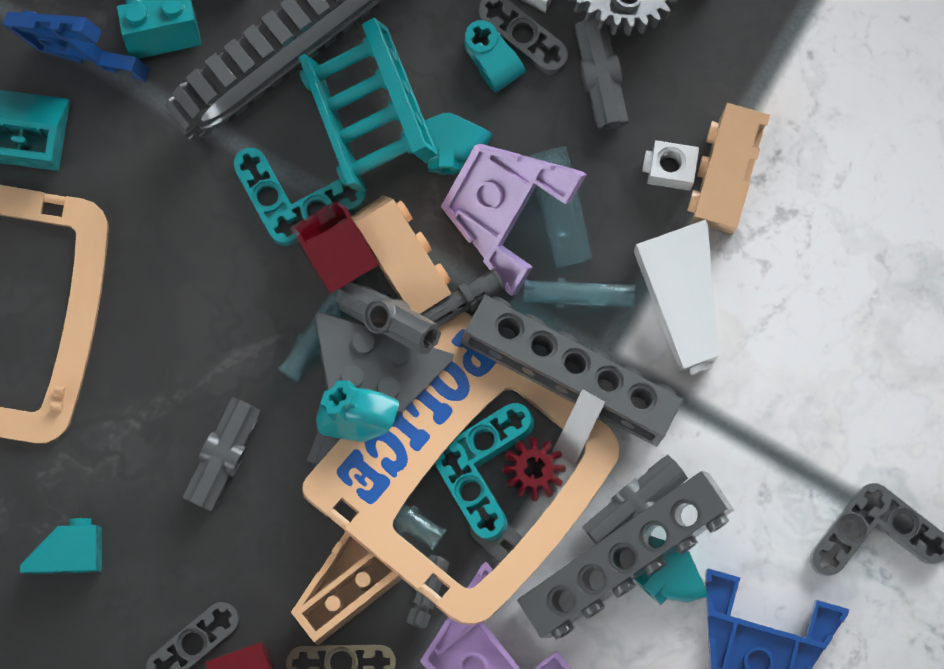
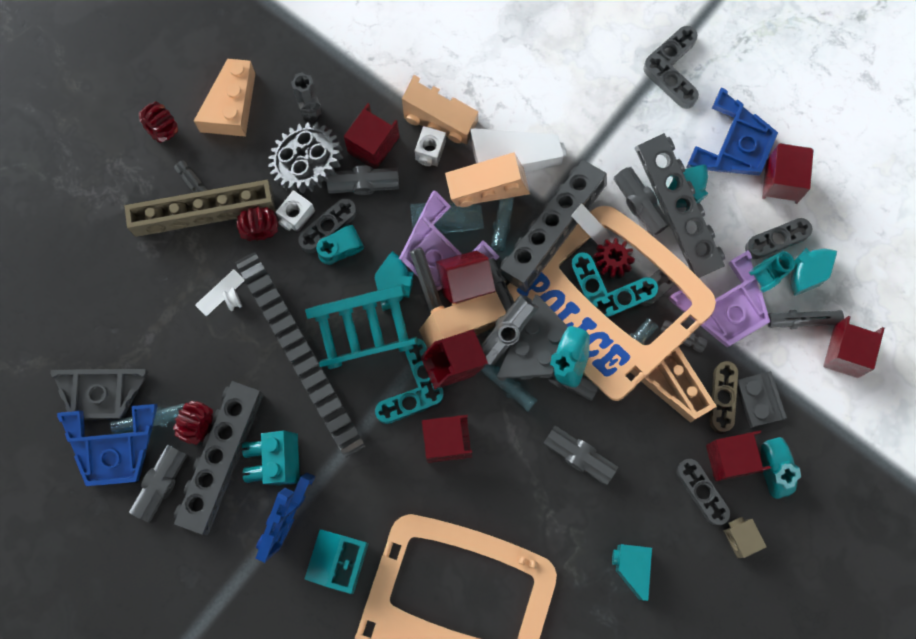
camera: 80 degrees left, 5 degrees down
(215, 254) = (446, 438): none -> dark red piece
(451, 189) = (425, 278): none -> dark grey axle
(462, 243) = (465, 276): none -> dark red piece
(619, 257) = (488, 181): none -> light nougat wedge
(668, 72) = (371, 138): none -> dark red piece

